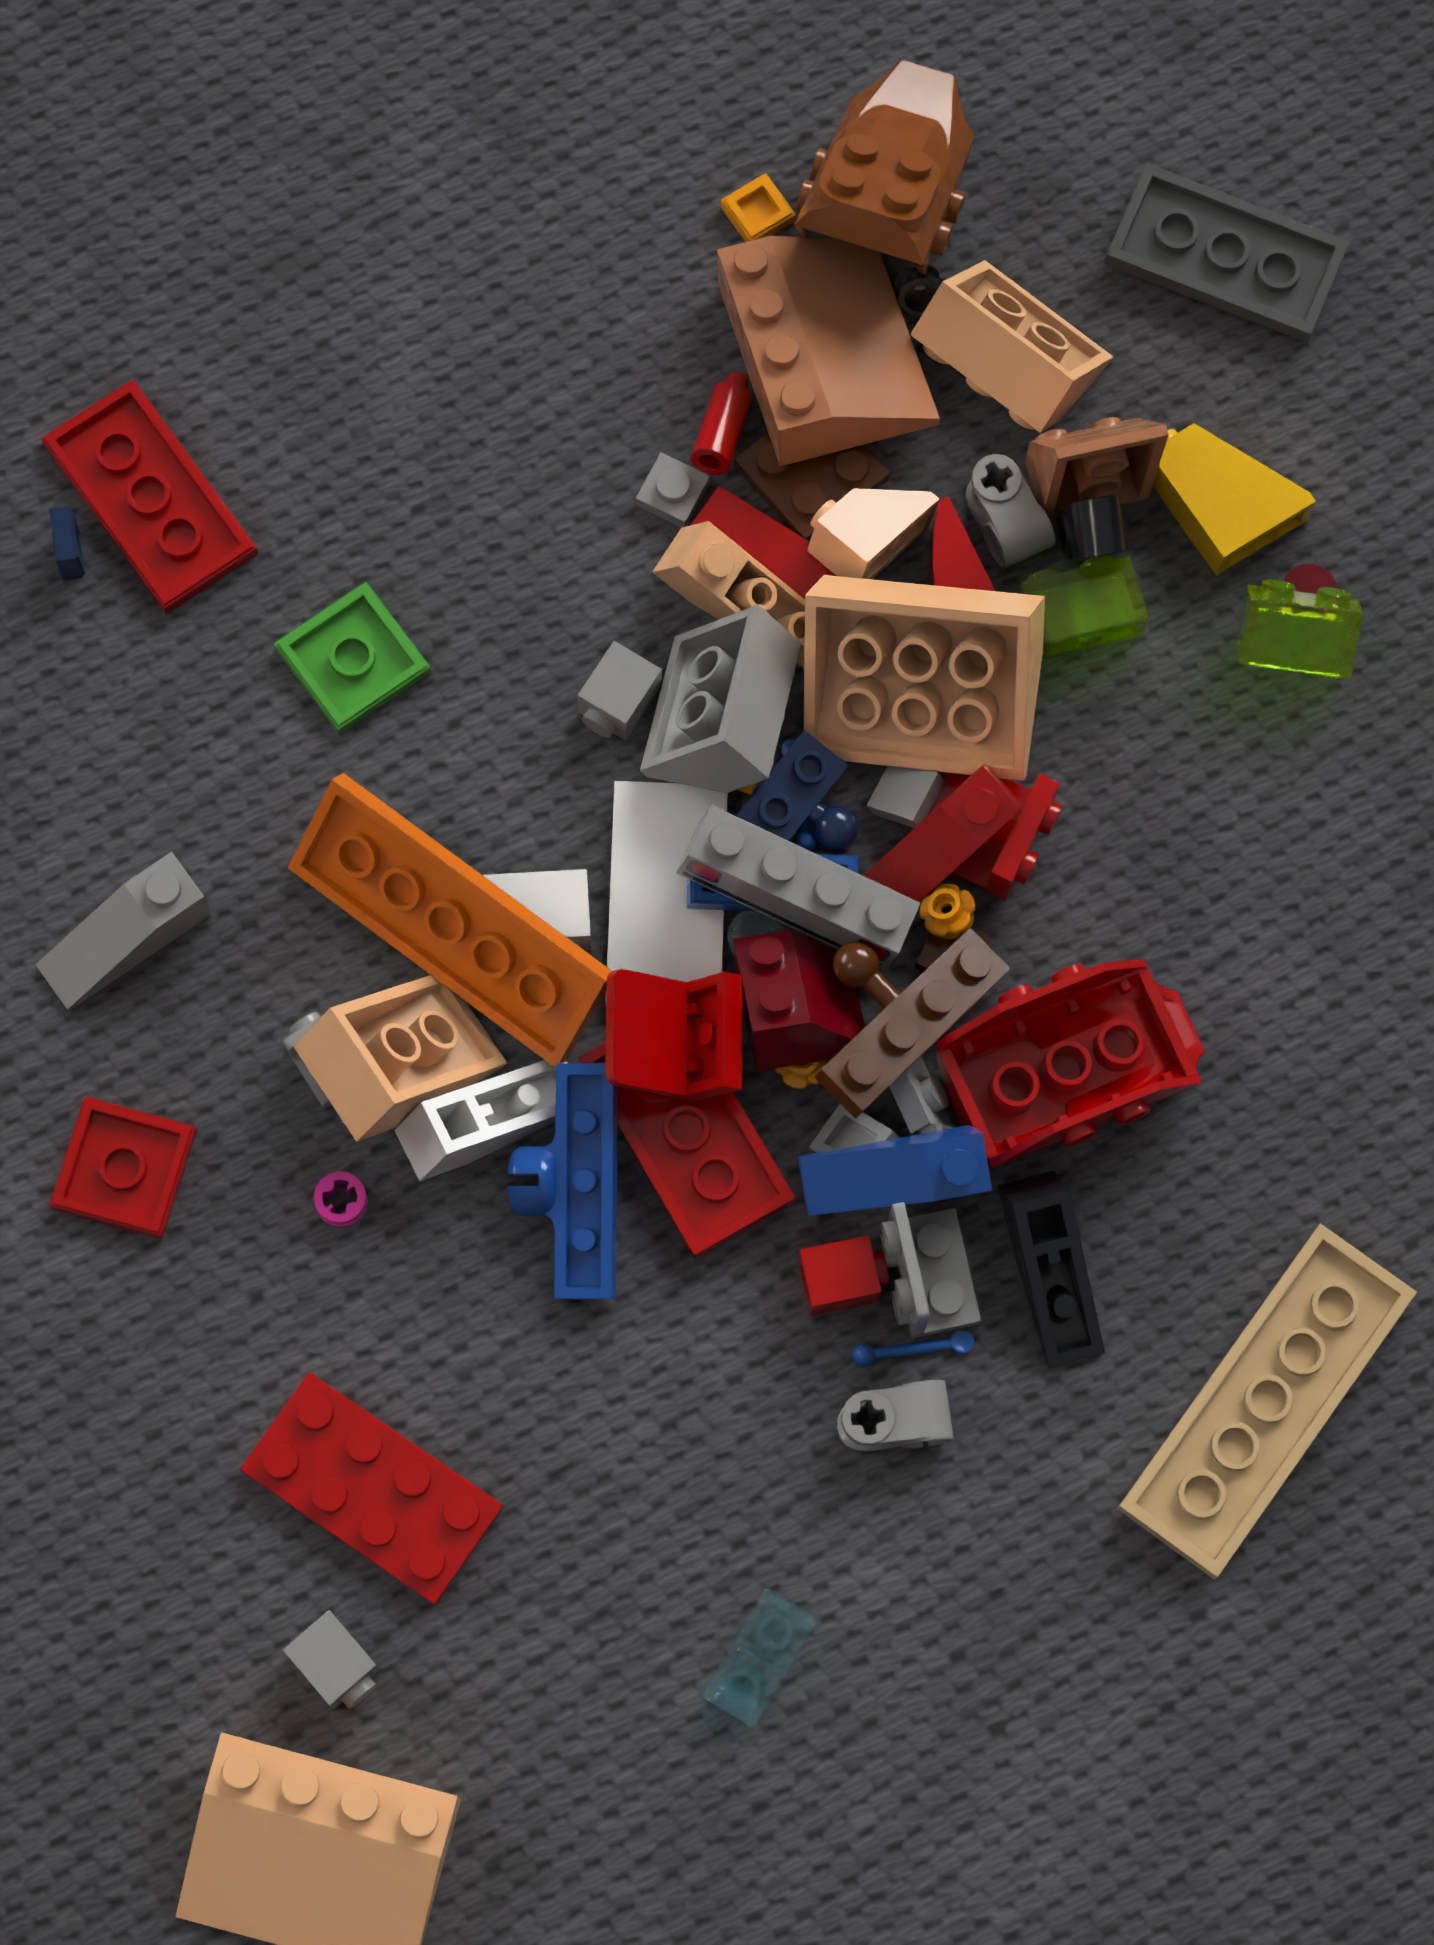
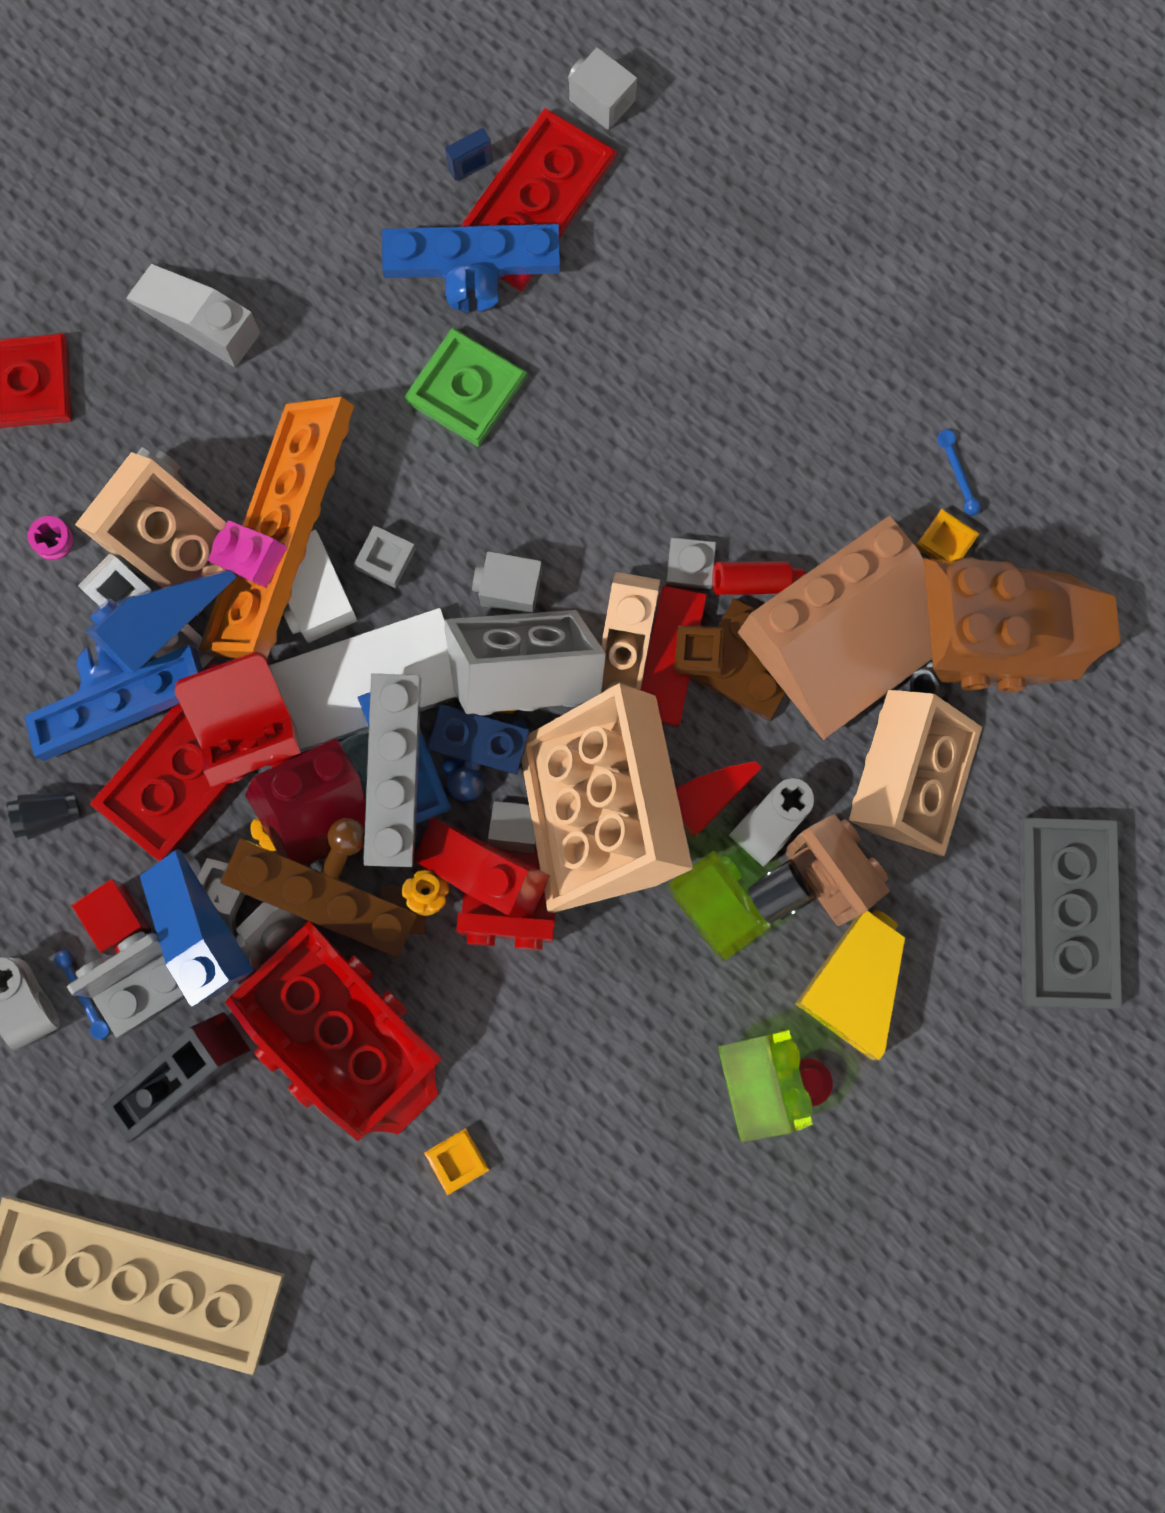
camera: 70 degrees right, 5 degrees up
(48, 363) = (602, 88): none -> light grey brick
(200, 588) = (471, 257): none -> blue plate
(472, 959) = (247, 553): none -> dark pink plate
(513, 1095) = (145, 622): none -> blue slope
(527, 820) = (384, 556): none -> light grey plate
(639, 165) = (946, 440): none -> blue hinge
(680, 1319) = (41, 813): none -> black cone
(785, 513) = (699, 650): none -> reddish brown tile
(869, 529) = (711, 718): light nougat slope -> none
(1258, 996) = (456, 1161): none -> light orange tile

